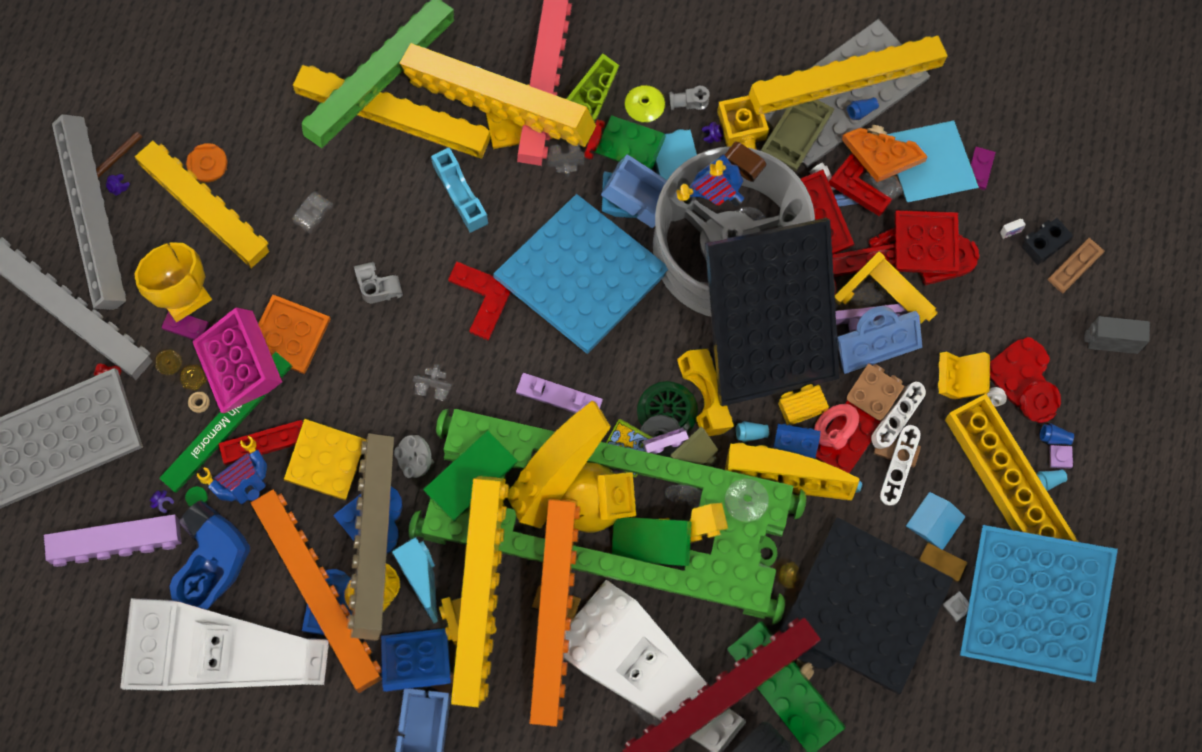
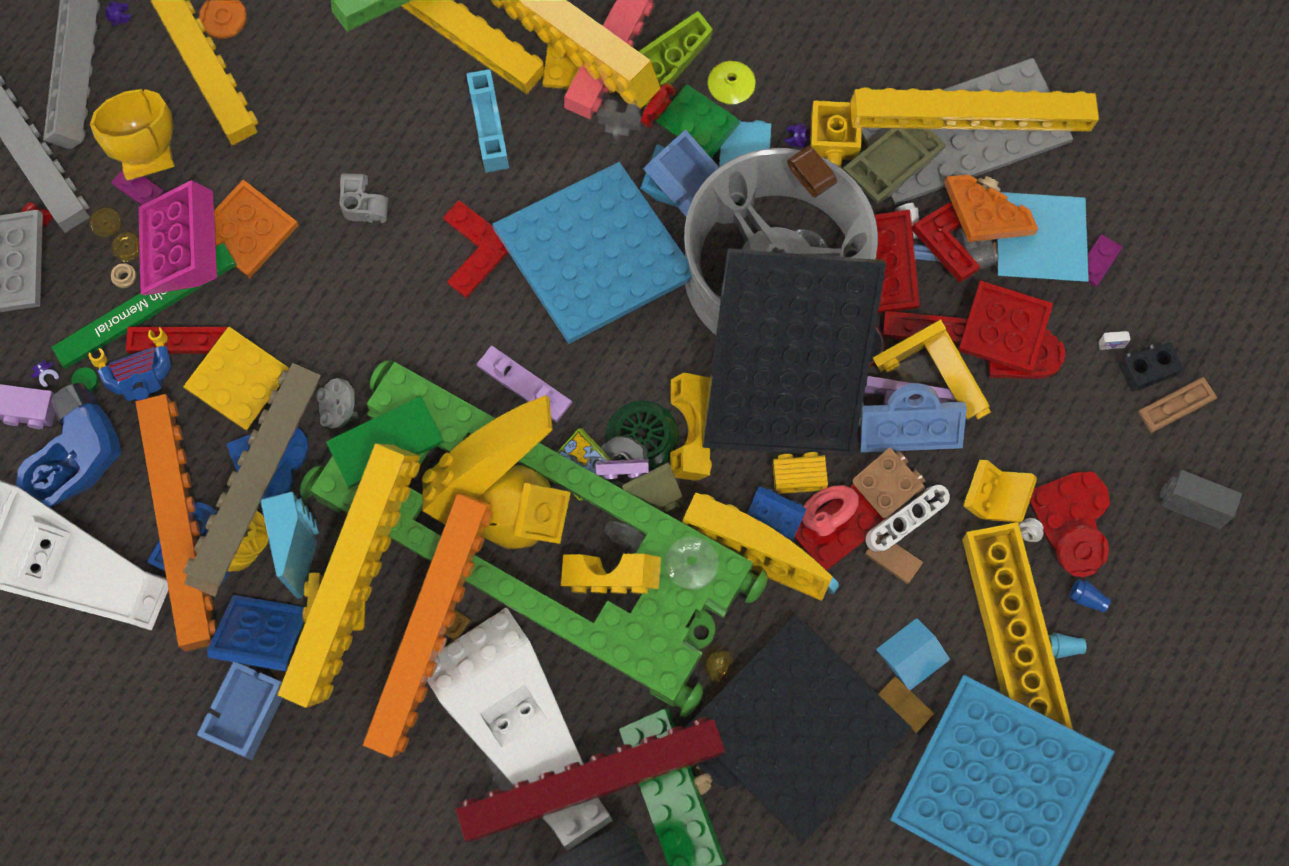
camera: 20 degrees right, 0 degrees up
(312, 212) = (317, 101): clear beam -> none
(423, 383) = (375, 325): clear hips -> none
(652, 540) = (570, 578): green tile -> none
(690, 98) = (784, 90): light grey connector -> none
(715, 183) = (768, 186): torso -> none
(751, 431) = (730, 487): medium azure cone -> none
(861, 108) = (977, 153): blue cone -> none
(882, 239) = (957, 310): red axle -> none
(903, 466) = (888, 575): white beam -> none
(957, 606) = (905, 761): light grey tile -> none
(1061, 457) = (1087, 623): lavender plate -> none

